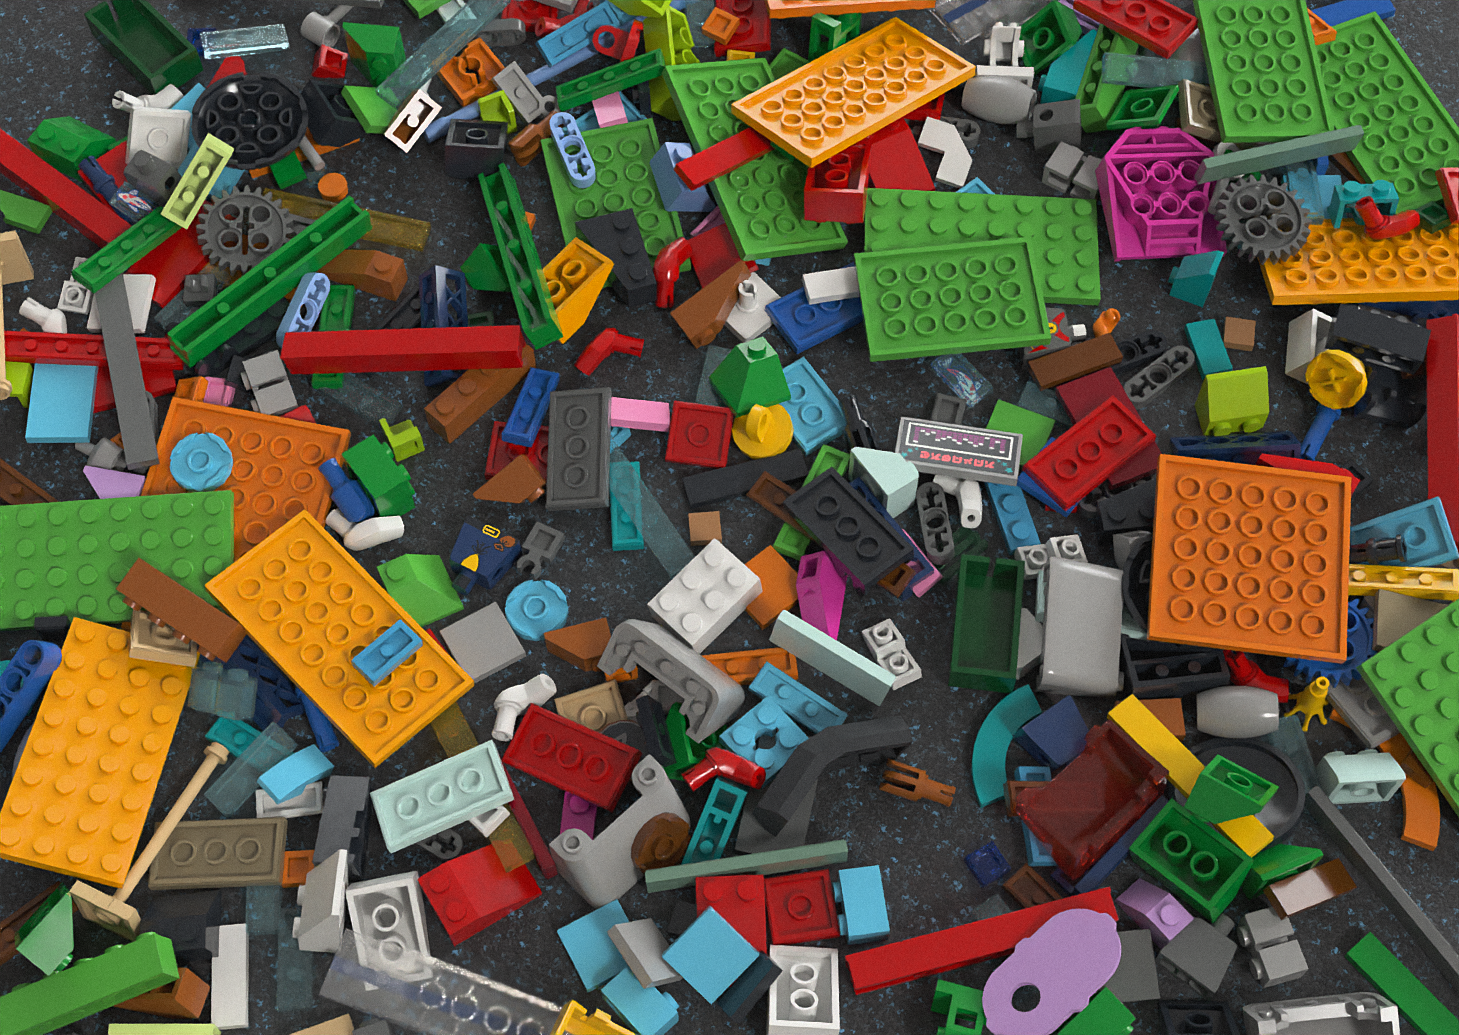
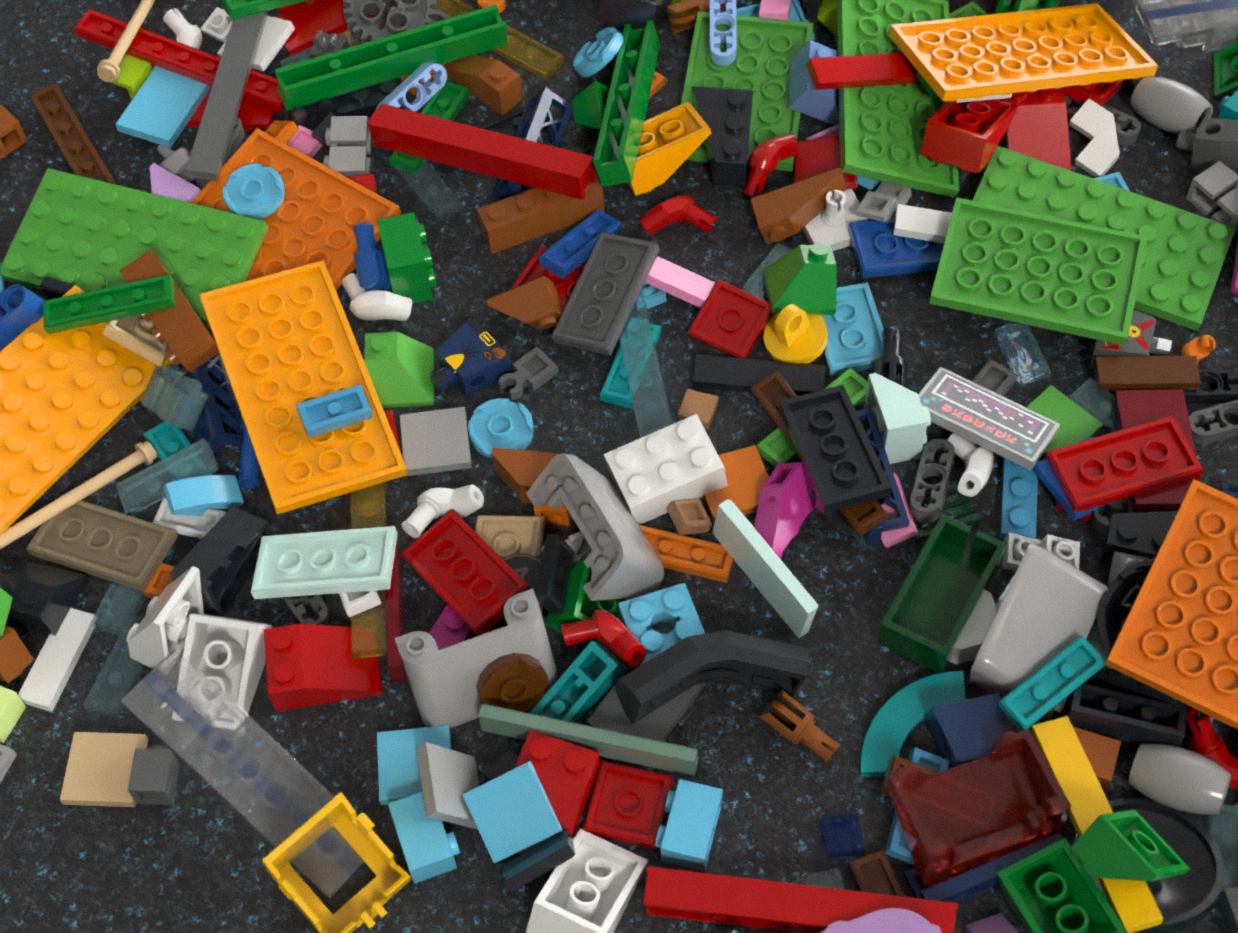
camera: 25 degrees right, 5 degrees down
(124, 626) = (108, 304): none -> green tile
(402, 439) = (448, 235): lime panel -> none
(464, 211) = (598, 54): none -> medium azure tile
(741, 631) = (689, 516): none -> medium nougat tile
(787, 275) = (883, 202): none -> light grey slope
(796, 700) = (712, 596): medium azure tile -> none
(891, 653) = (832, 591): white slope -> none
(1005, 46) = (1197, 61): white tile -> none
(1110, 671) = (1052, 683): none -> teal tile

